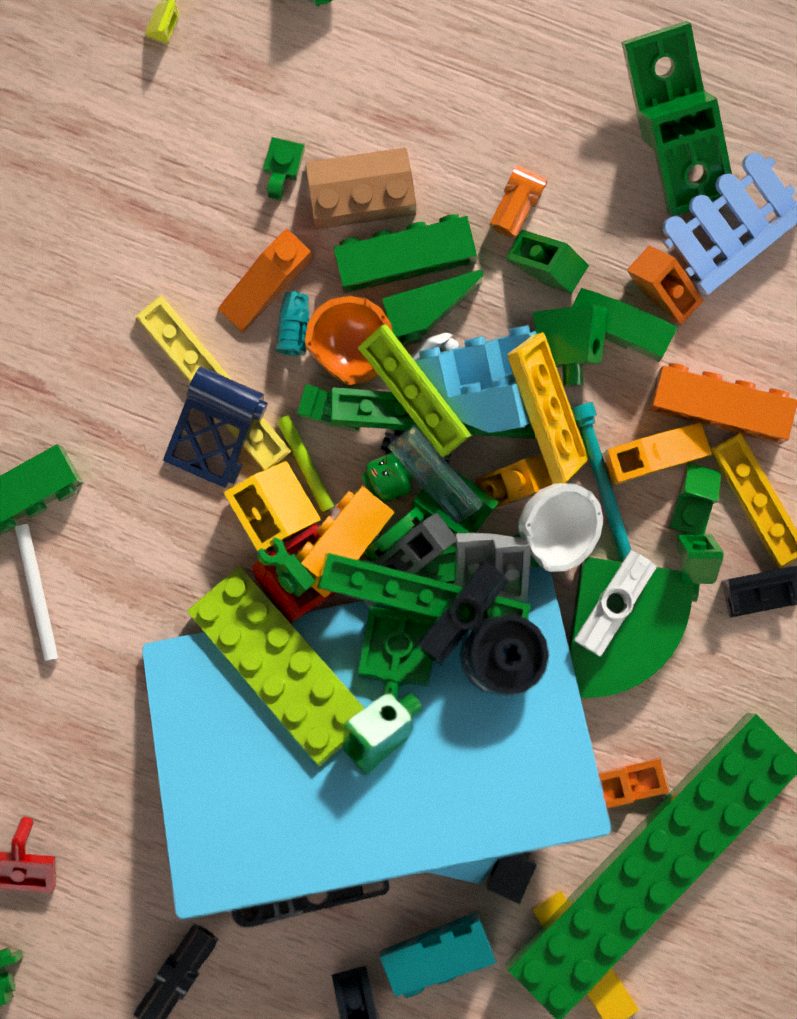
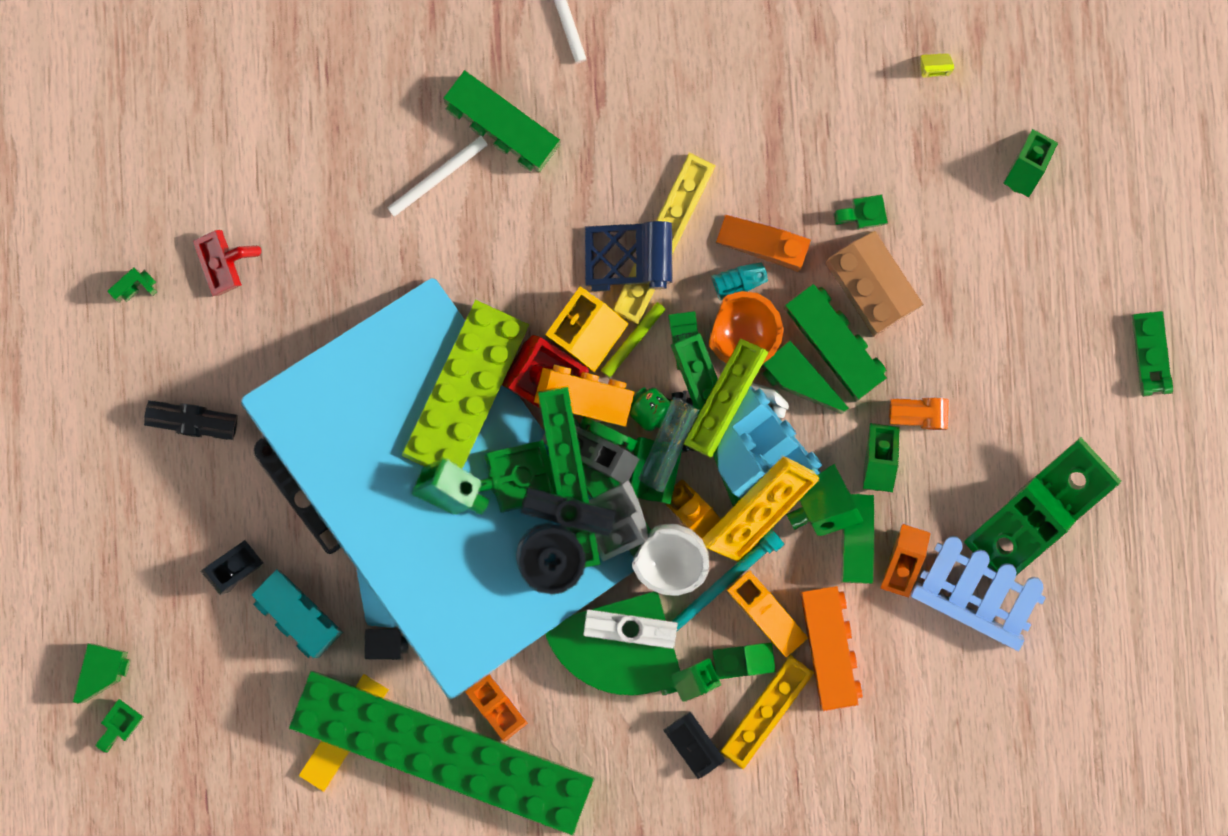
camera: 60 degrees right, 0 degrees up
(291, 572) = (541, 366): green plate -> none

